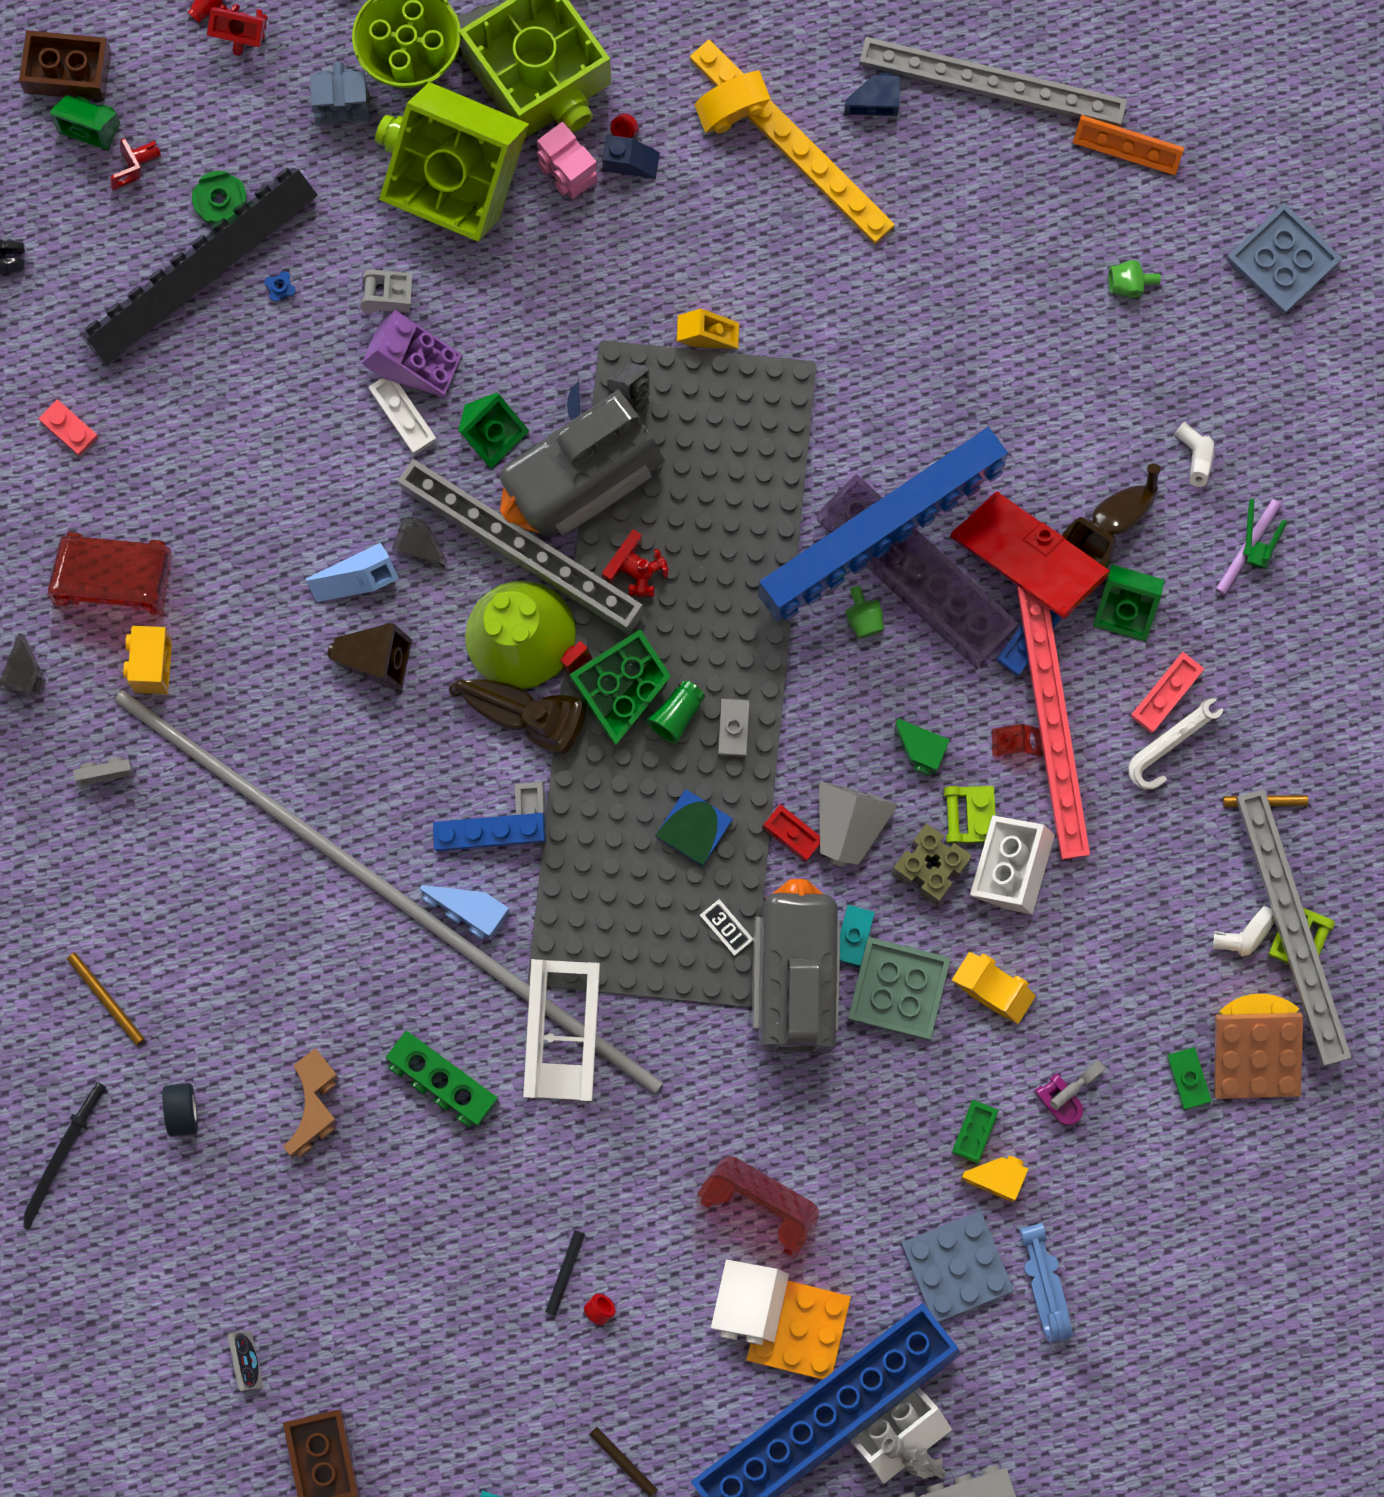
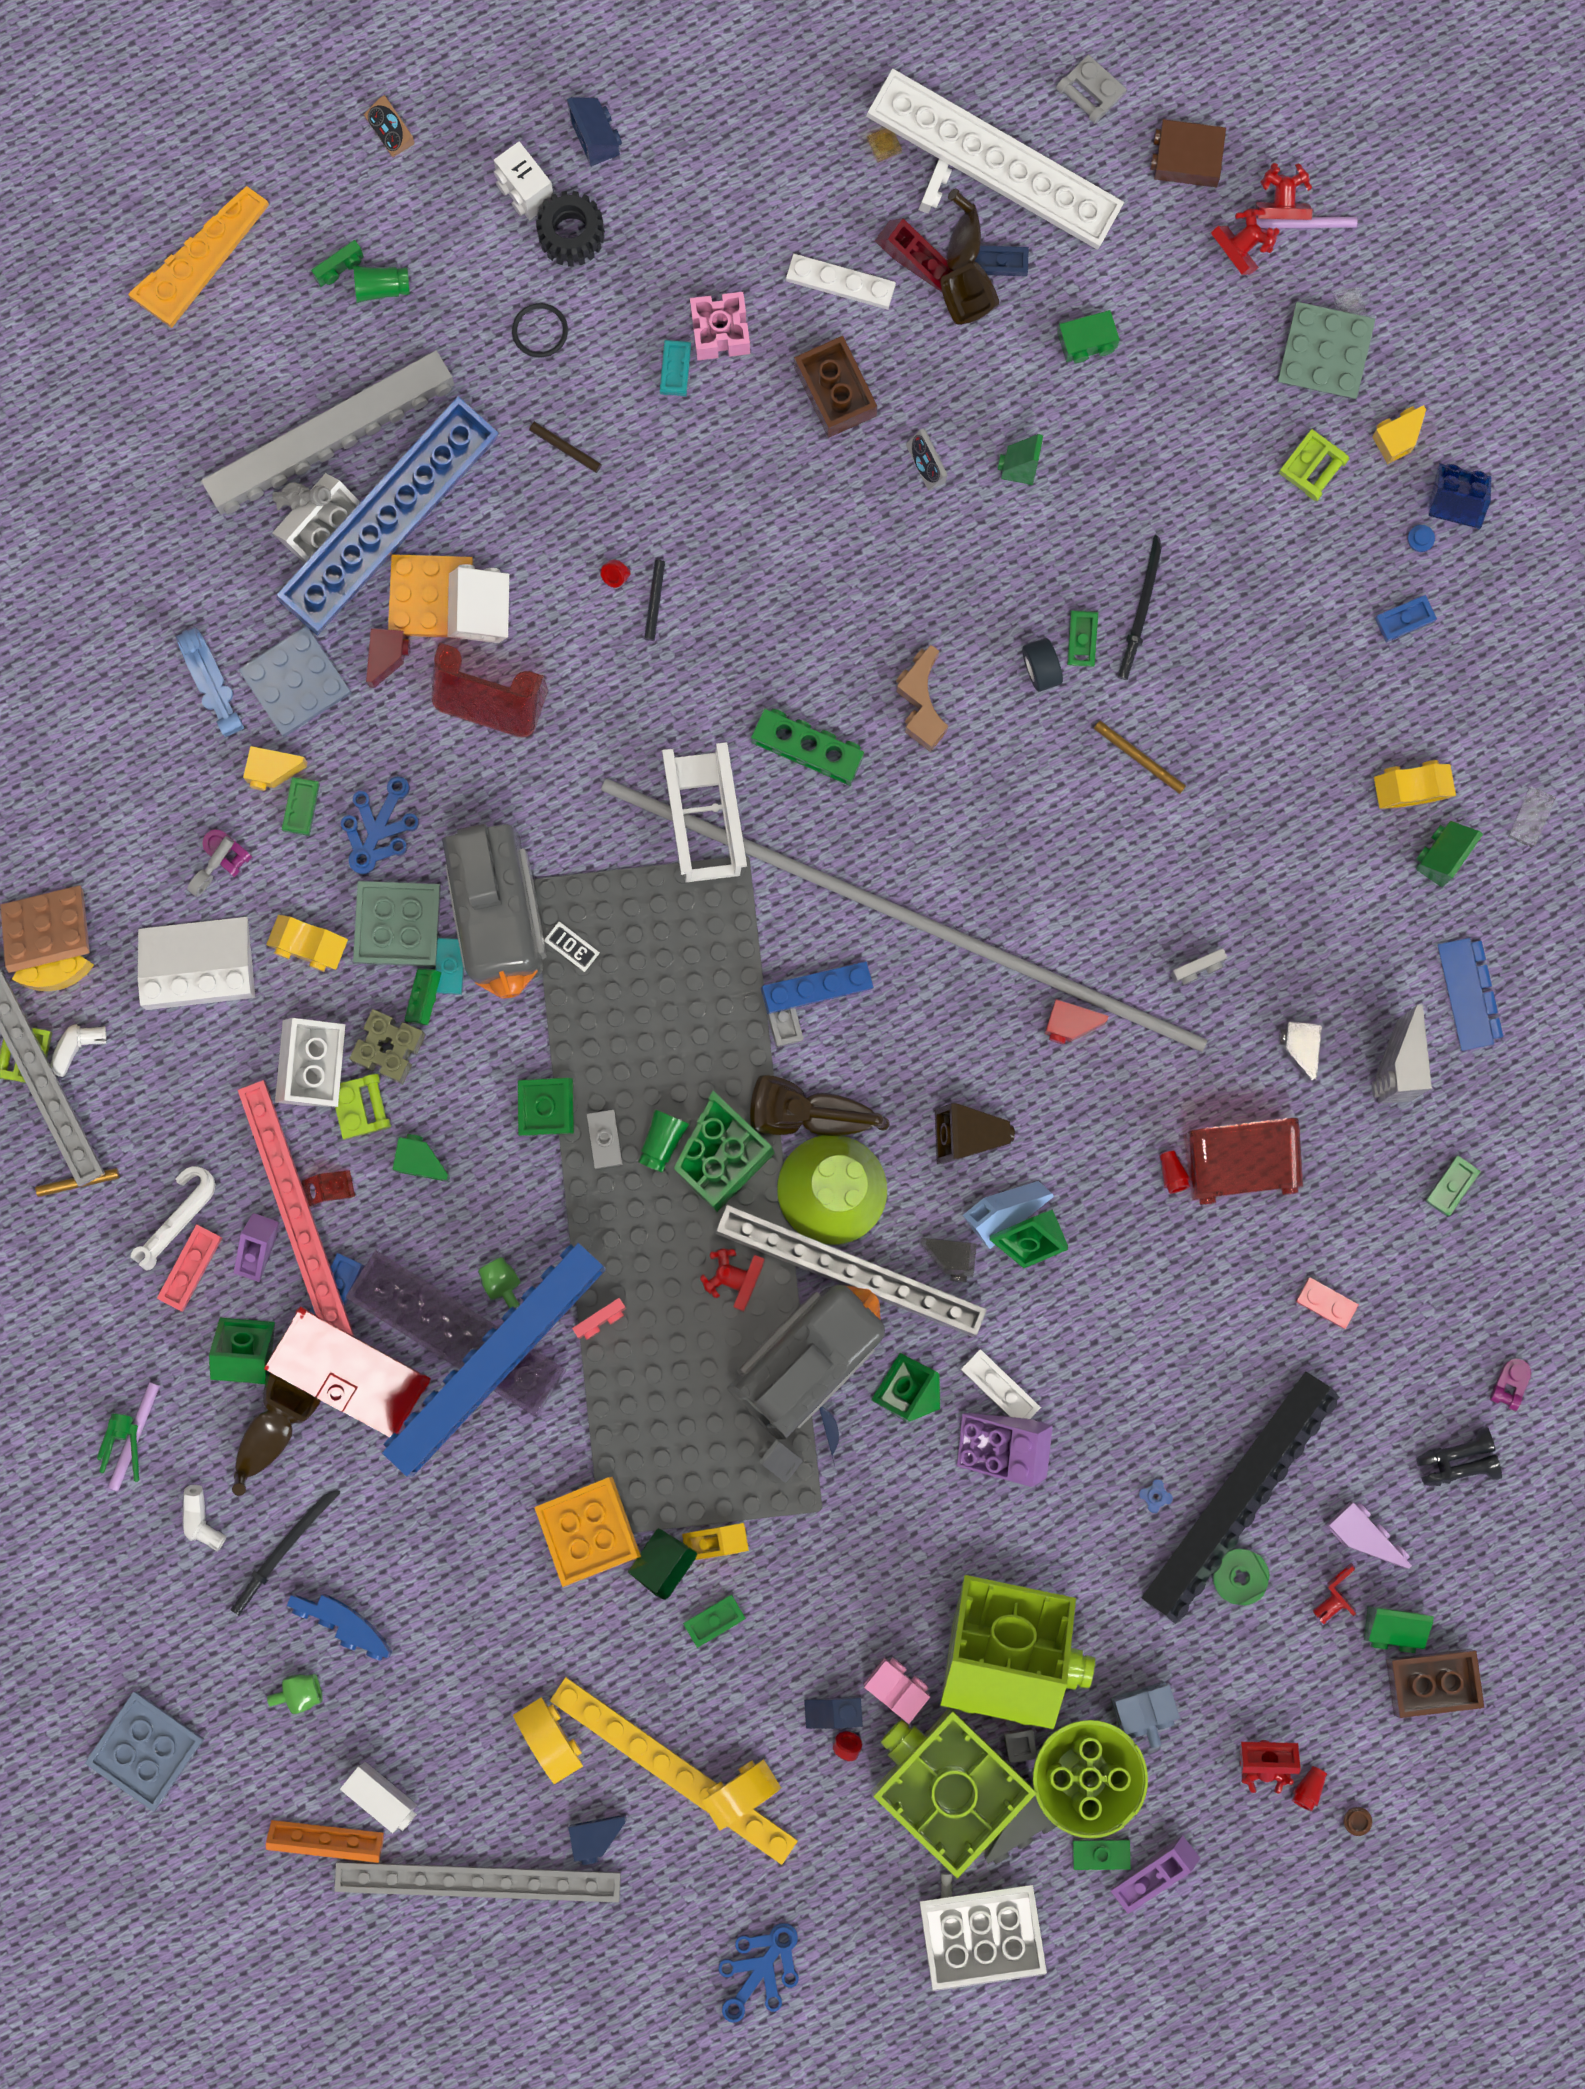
camera: 170 degrees right, 5 degrees up
(39, 1459) = (1088, 337): none -> green brick
(97, 209) = (1359, 1533): none -> lavender slope
(130, 1137) = (1082, 637): none -> green slope
(145, 1331) = (1021, 460): none -> green slope
(148, 659) = (1184, 1079): yellow brick -> none
(182, 578) = (1174, 1175): none -> red cone
(244, 744) = (1071, 1022): none -> slope
(336, 541) = (1032, 1239): none -> green slope
(395, 295) = (1037, 1512): light grey plate -> none
(465, 85) = (1020, 1745): none -> dark grey brick
(474, 908) = (816, 912): light blue slope -> none
(575, 657) = (772, 1172): red plate -> none
(694, 827) = (622, 1033): dark green tile -> none
(724, 262) = (714, 1621): none -> green plate
(762, 320) = (662, 1564): none -> dark green piece
(785, 550) = (590, 1326): none -> coral plate
(785, 771) = (545, 1107): none -> green plate
(792, 833) = (527, 1050): red plate -> none
(827, 363) = (587, 1531): none -> light orange plate
(850, 822) = (473, 1072): light grey slope -> none
(857, 1273) = (385, 654): none -> dark red slope
(886, 908) = (422, 996): none -> green plate
(900, 1091) = (377, 829): none -> blue plant
(903, 187) = (547, 1740): none -> yellow brick
(1067, 326) = (352, 1627): none -> blue slope
(1070, 167) = (379, 1798): none -> white brick
(1097, 698) = (255, 1246): none -> medium lavender slope
(1111, 992) = (195, 963): none -> white slope
(1147, 391) = (261, 1575): none -> black sword
(1189, 1078) = (108, 899): green plate -> none

